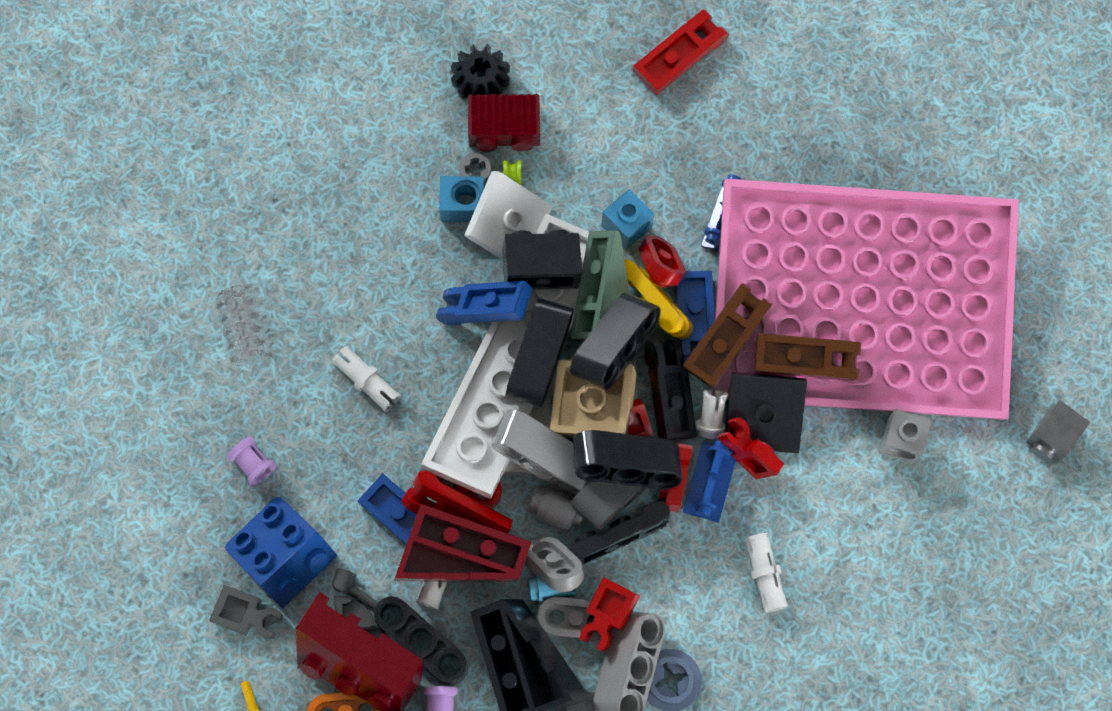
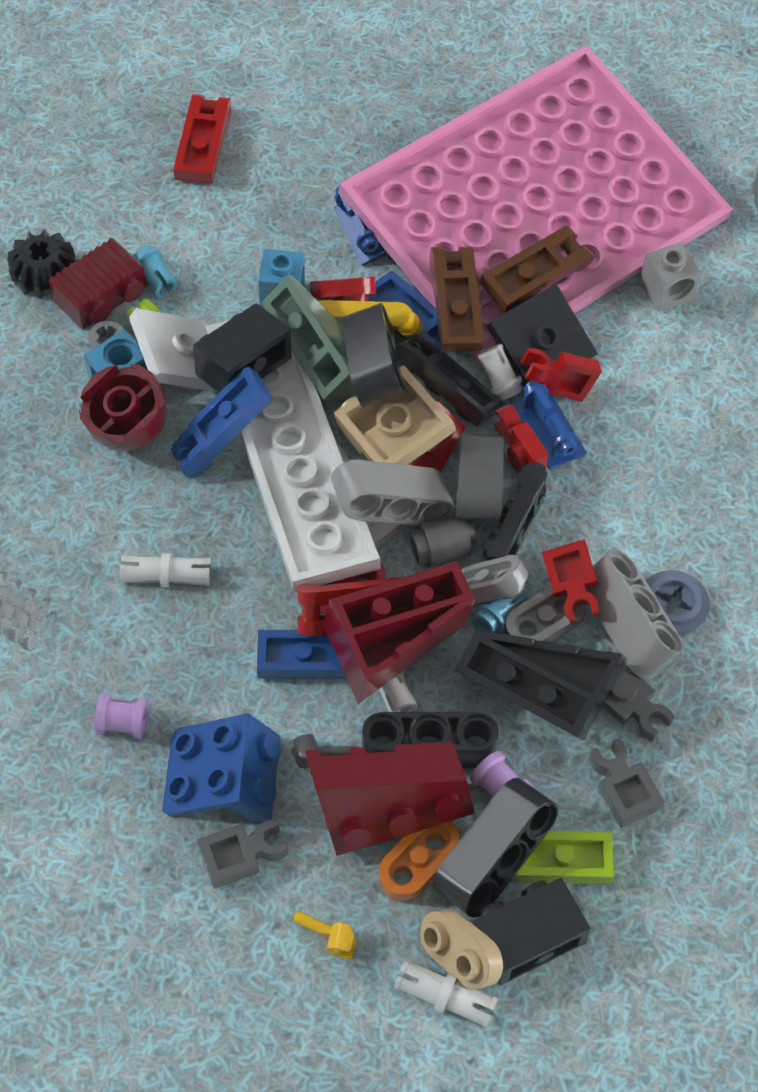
camera: 40 degrees left, 15 degrees down
(430, 239) = (123, 407): none -> dark red cylinder
(539, 352) = (312, 417): black beam -> none
(552, 138) = (155, 270): none -> medium azure pin
(627, 459) = (472, 440): black beam -> none
(766, 572) = (664, 460): white pin -> none

